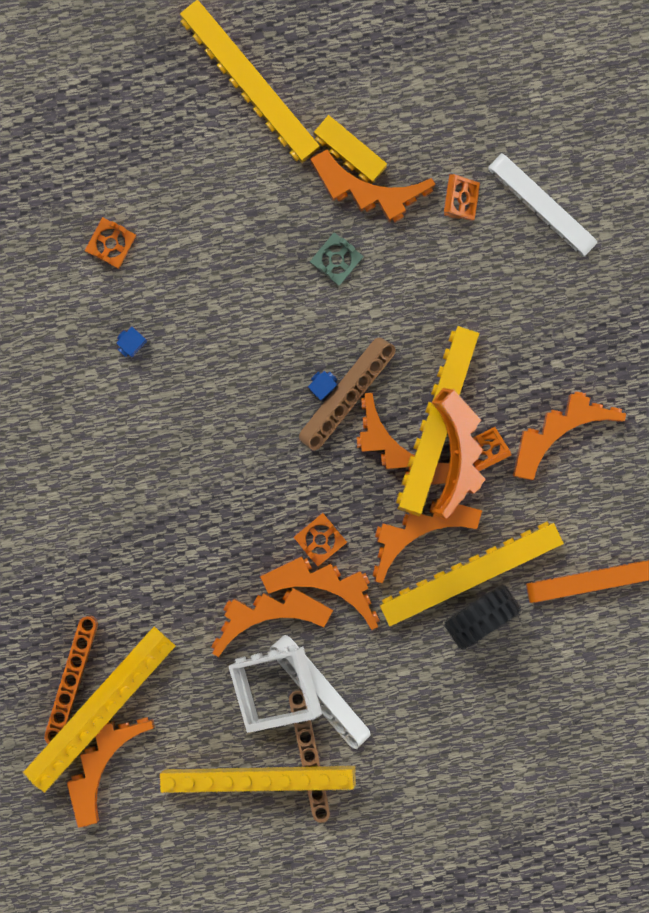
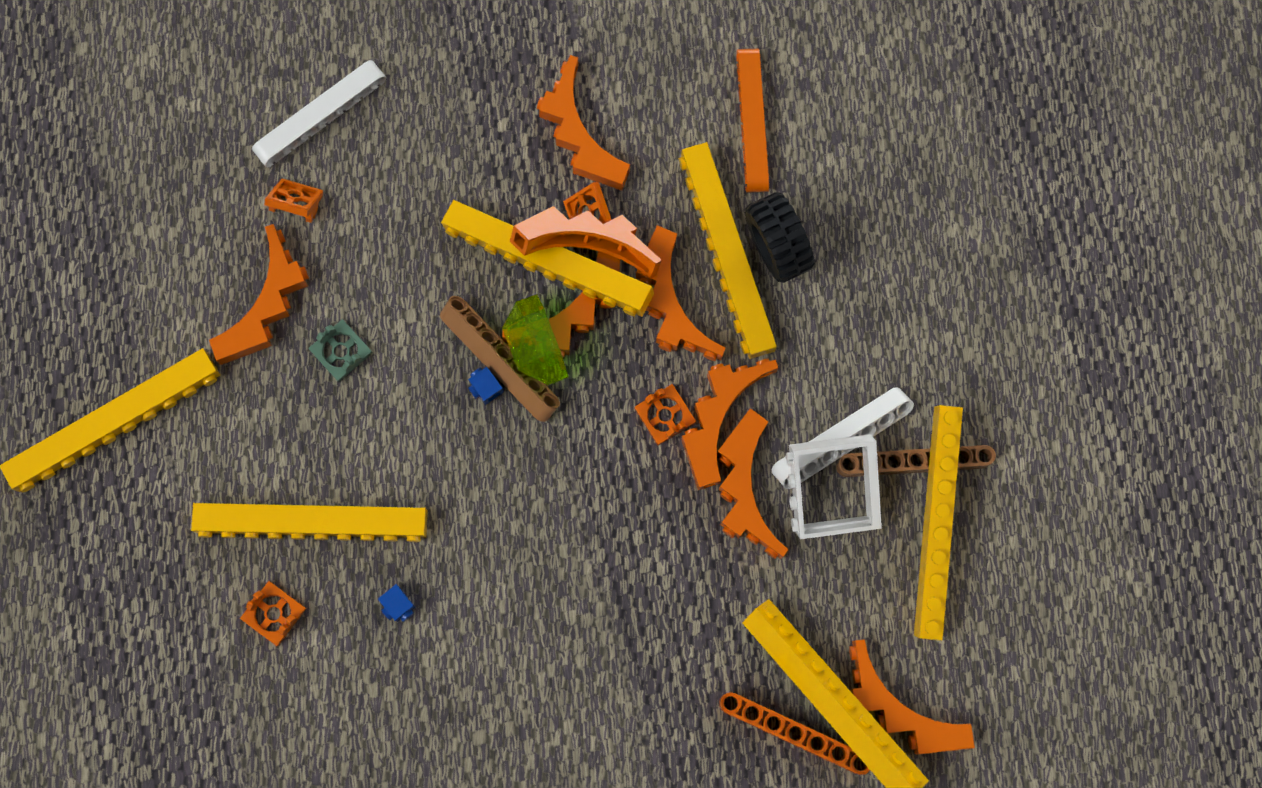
camera: 85 degrees left, 10 degrees down
(189, 260) = (309, 521): none -> yellow brick
(349, 149) = (214, 315): yellow brick -> none
(362, 420) = (534, 342): none -> clear neon green wedge

